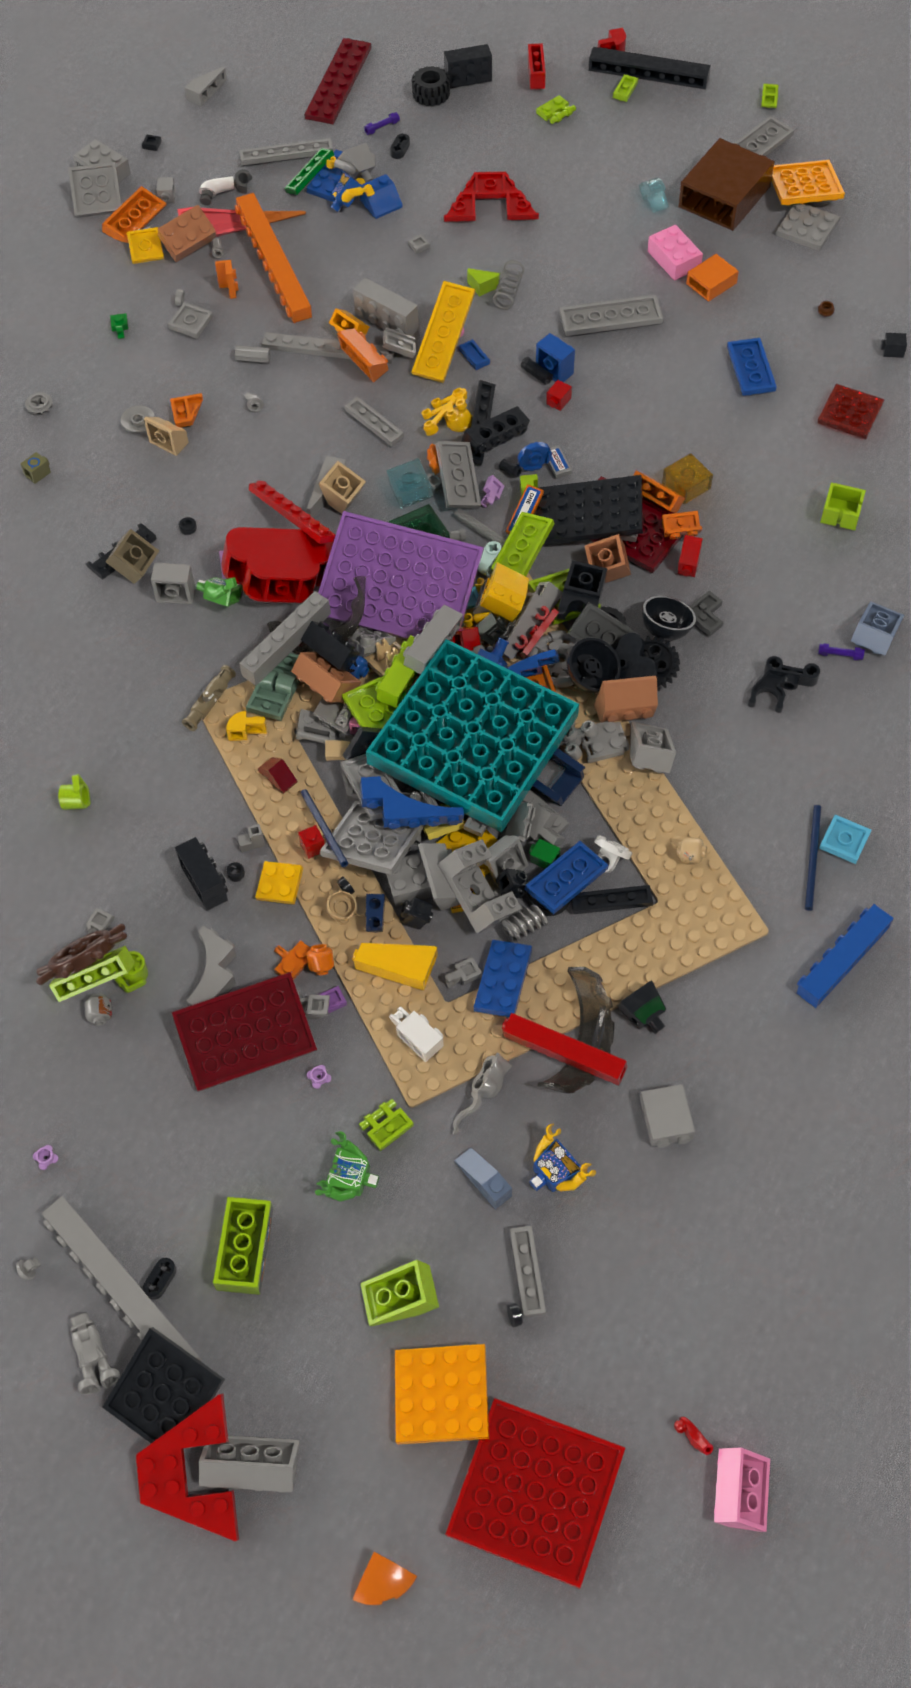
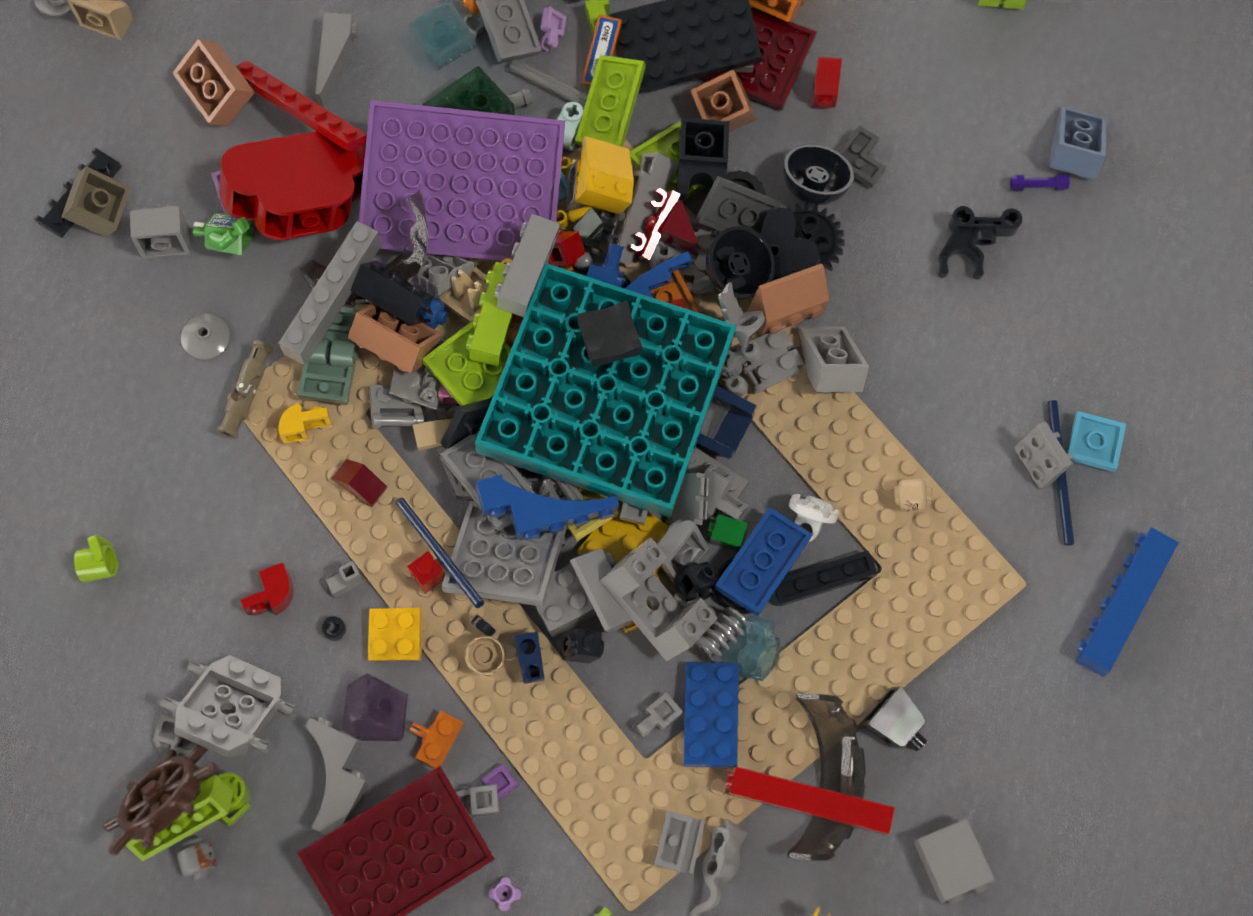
camera: 15 degrees left, 10 degrees up
(126, 907) = (231, 735): none -> light grey piece
(187, 526) = (159, 141): black tile -> none
(189, 666) = (211, 344): none -> light grey dish
(200, 829) = (277, 591): none -> red brick
(202, 873) = (292, 643): black brick -> none
(235, 490) = (213, 82): none -> nougat brick
(251, 929) = (374, 710): none -> clear purple slope
(320, 959) = (472, 734): orange head -> none
(341, 486) = (354, 55): tan slope -> none
(397, 962) = (576, 721): yellow slope -> none
(417, 1033) = (620, 813): white brick -> none
(457, 1062) = (679, 843): none -> light grey plate
(481, 692) = (609, 334): none -> black brick
(551, 940) = (761, 651): none -> clear light blue brick
(552, 637) = (679, 230): none -> dark red slope
(579, 696) = (733, 314): none -> light grey hair
(681, 524) = (807, 38): orange bracket -> none
(800, 839) = (1043, 455): none -> light grey plate

